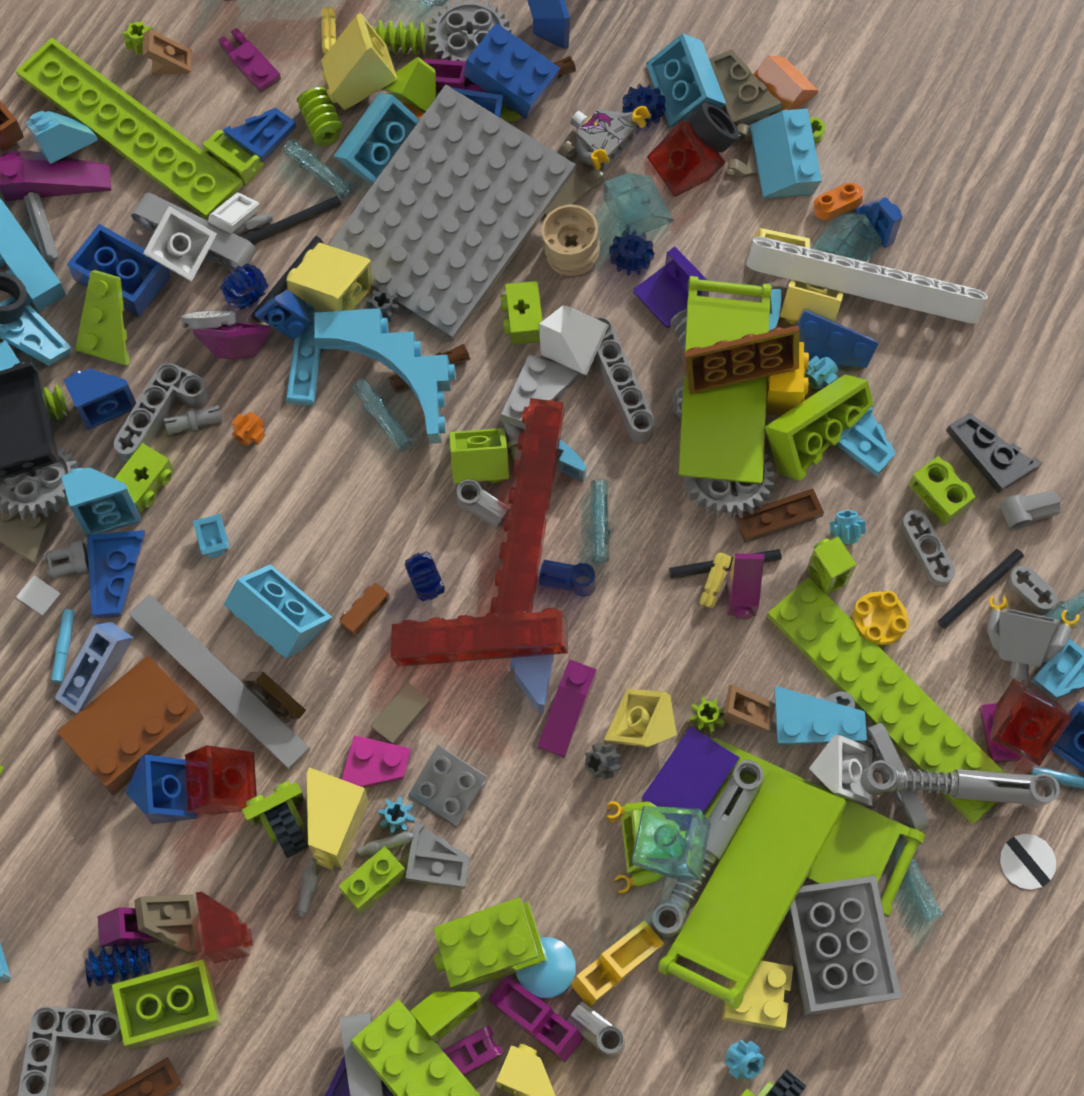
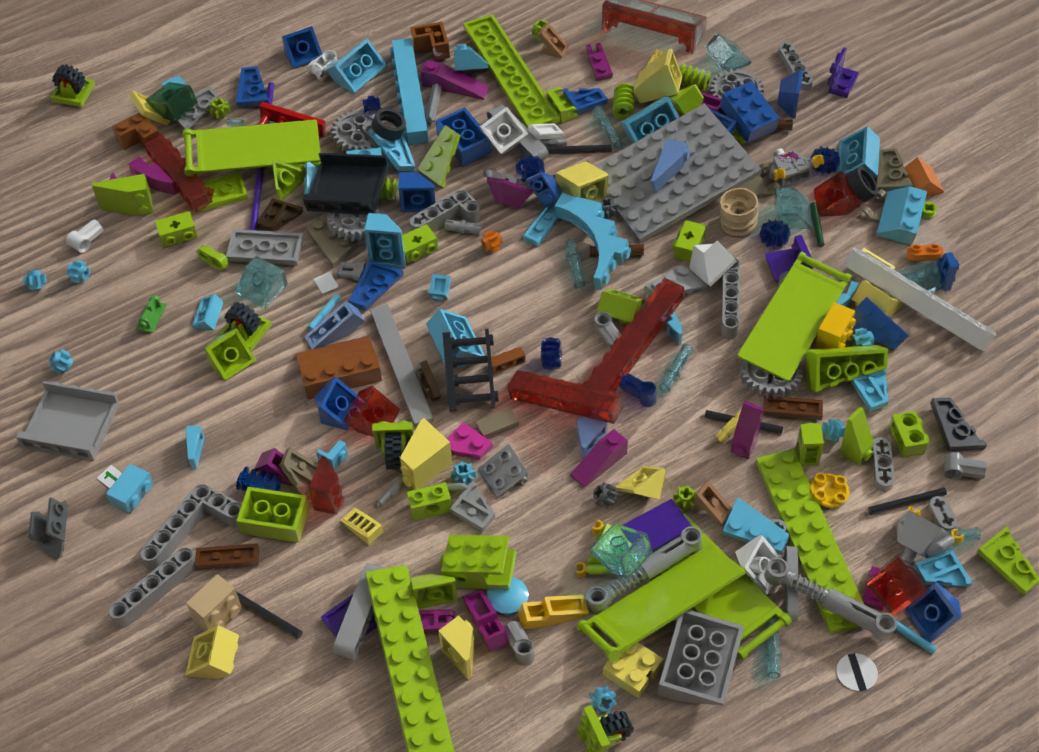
camera: 30 degrees right, 15 degrees down
(206, 867) = (337, 454): none -> medium azure bracket
(314, 681) = (452, 362): none -> black fence
(318, 965) = (368, 537): none -> light yellow slope
(445, 202) = (670, 162): none -> medium blue slope
(678, 212) = (817, 224): none -> dark green bar
(741, 359) = (806, 297): dark orange slope -> none
(888, 533) = (857, 438): none -> lime slope

